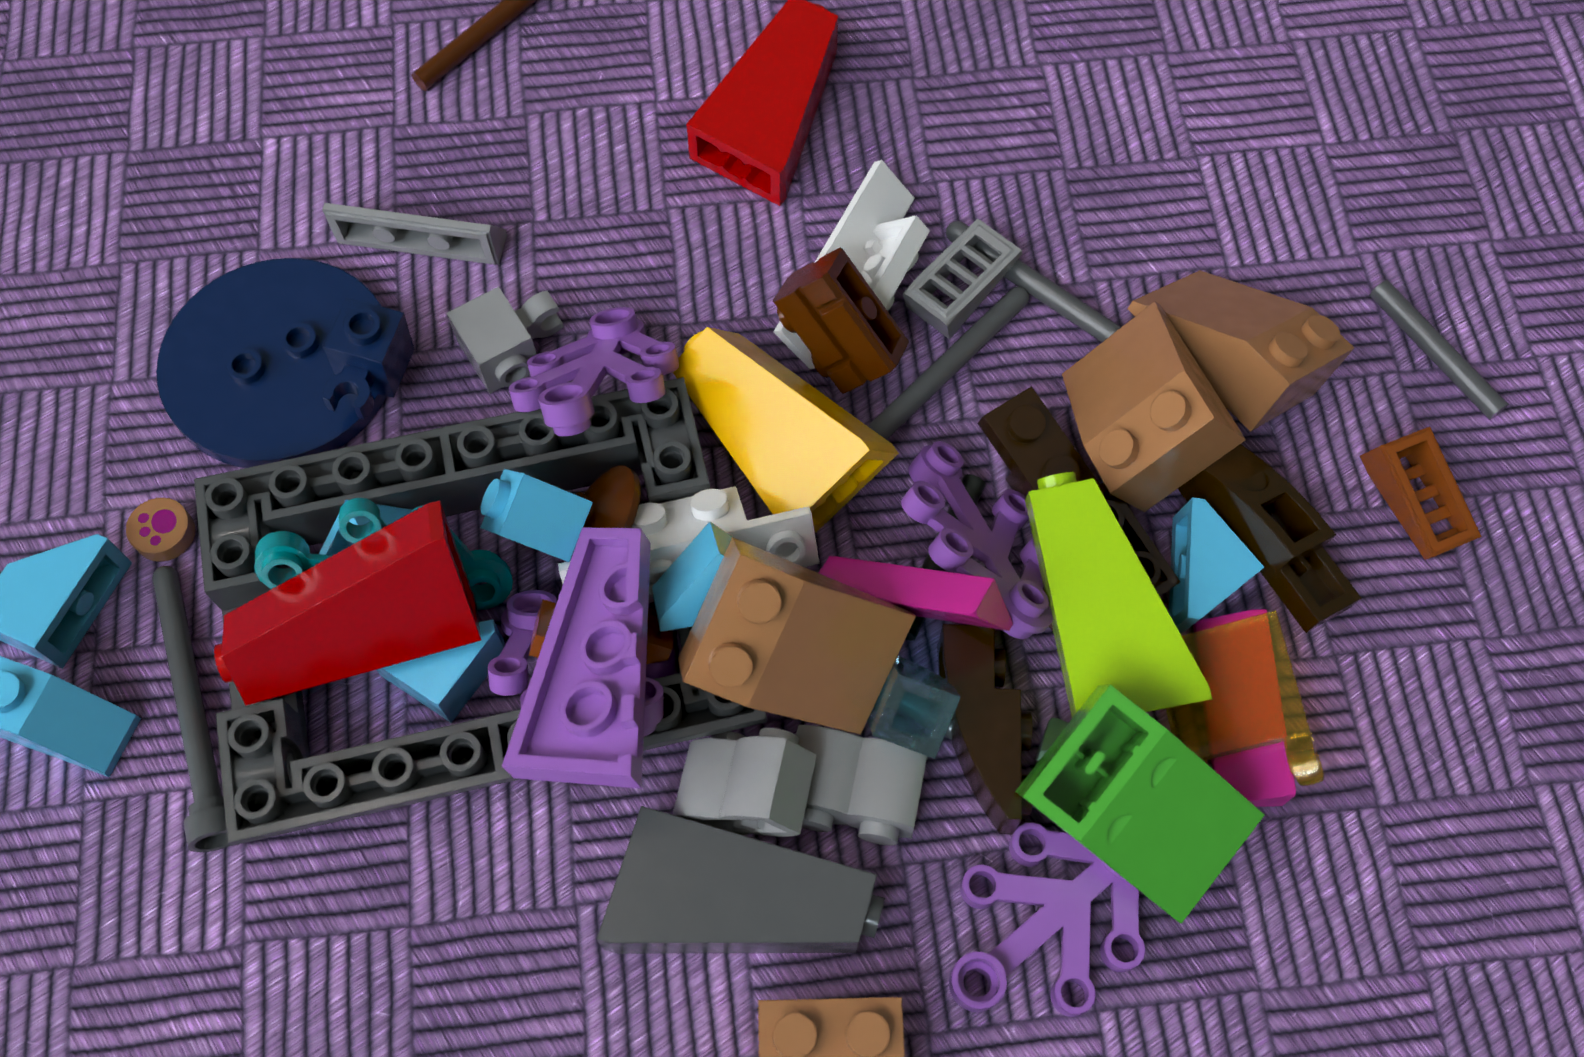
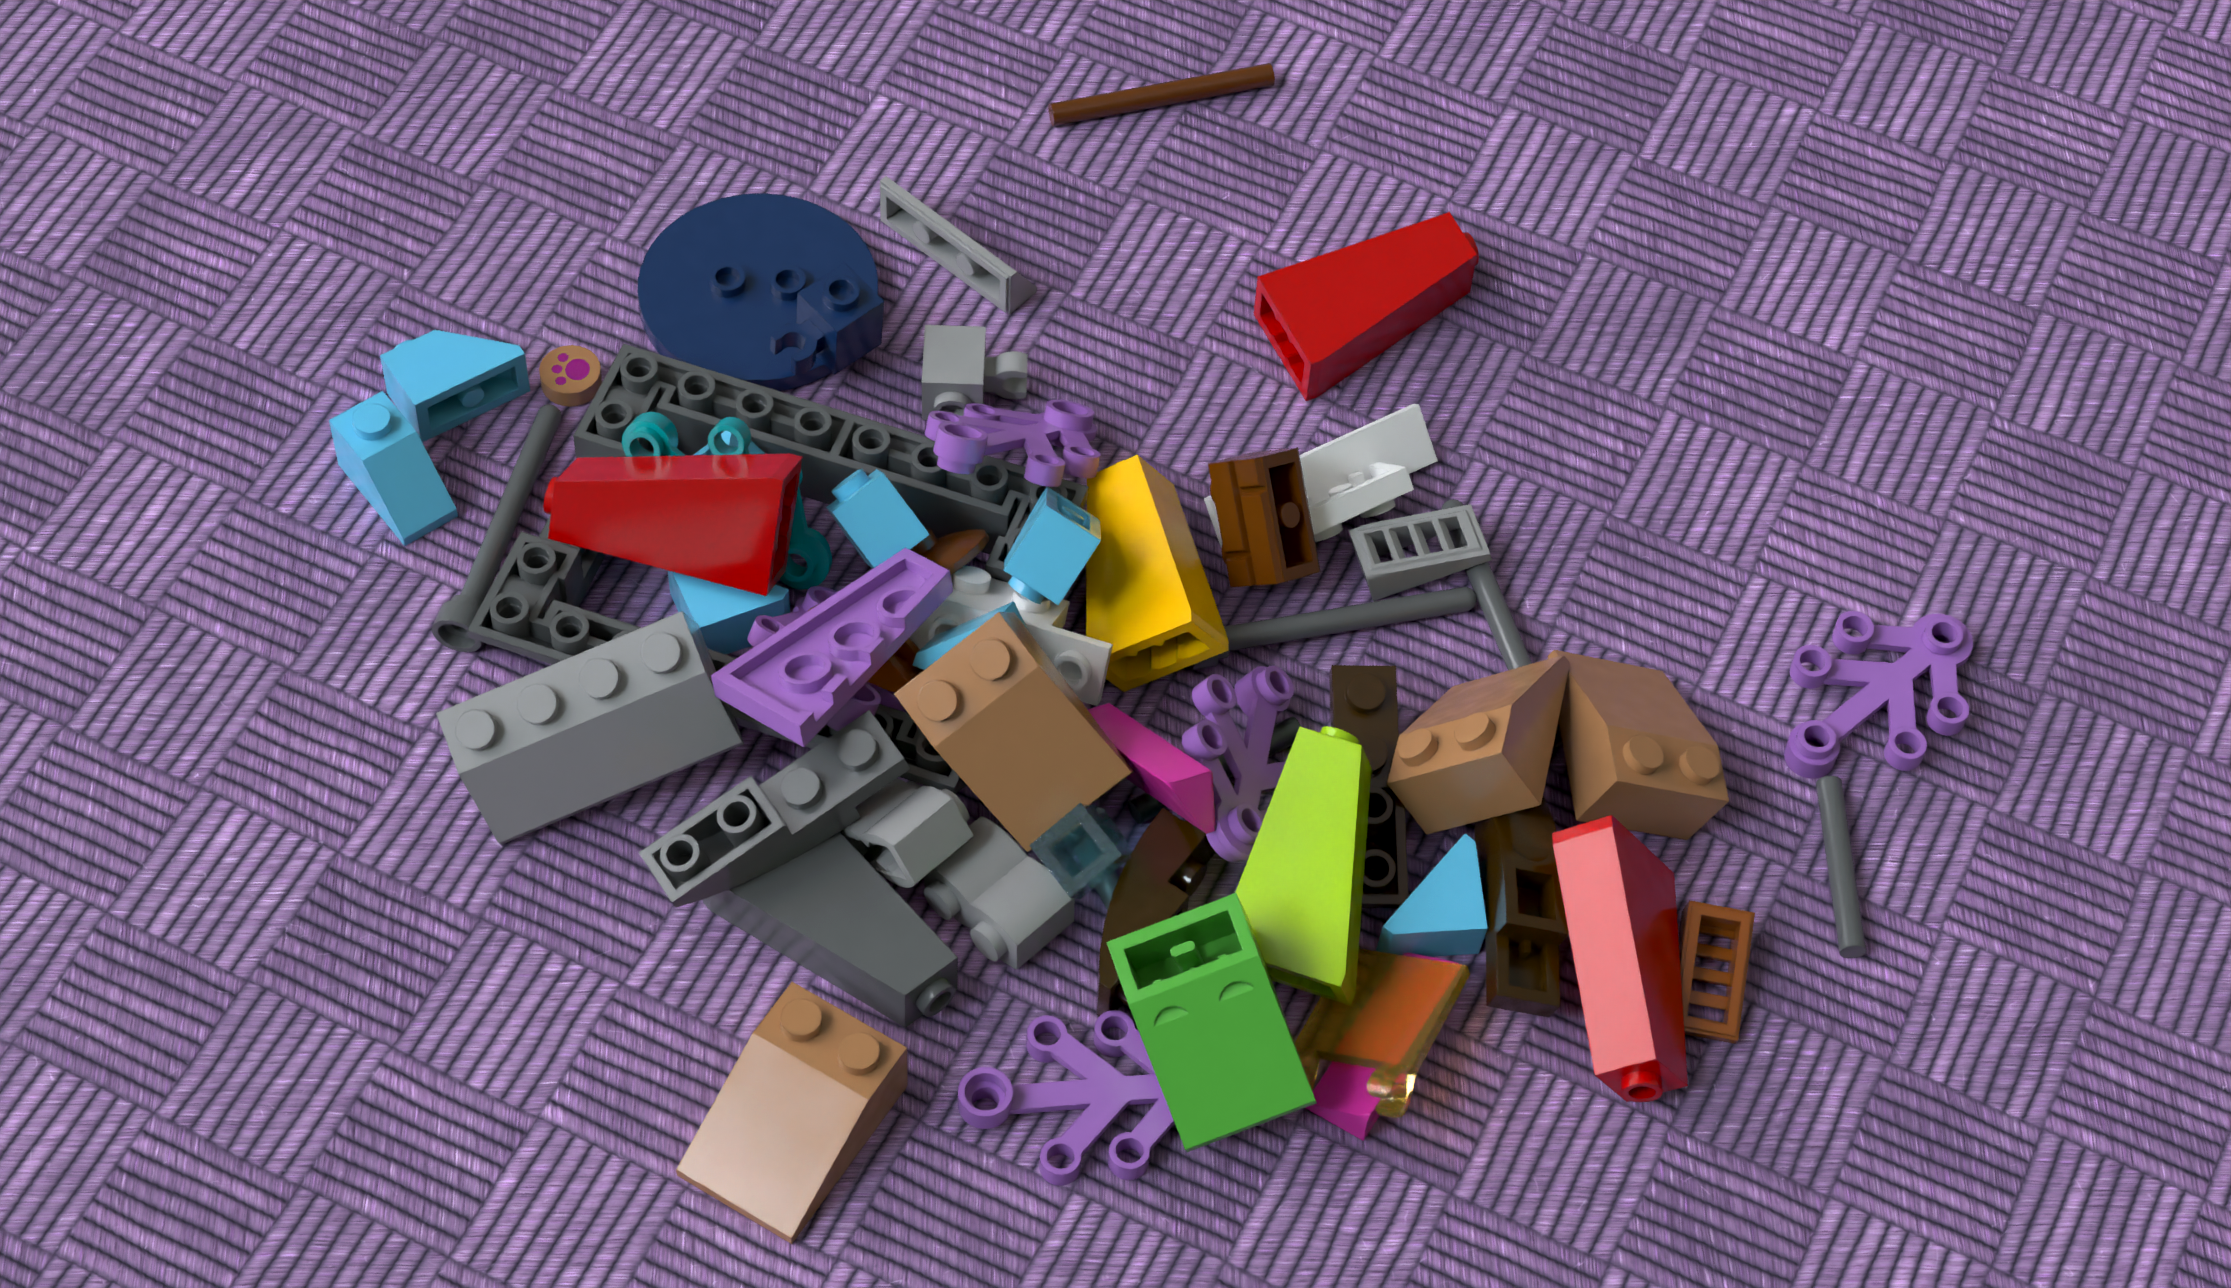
camera: 30 degrees right, 10 degrees down
(406, 873) = (590, 728): none -> light grey slope
(636, 856) = (782, 818): none -> dark grey slope
(707, 452) = (1051, 548): none -> medium azure slope
(1367, 138) = (1882, 685): none -> medium lavender plant
(1382, 530) = (1624, 957): none -> slope

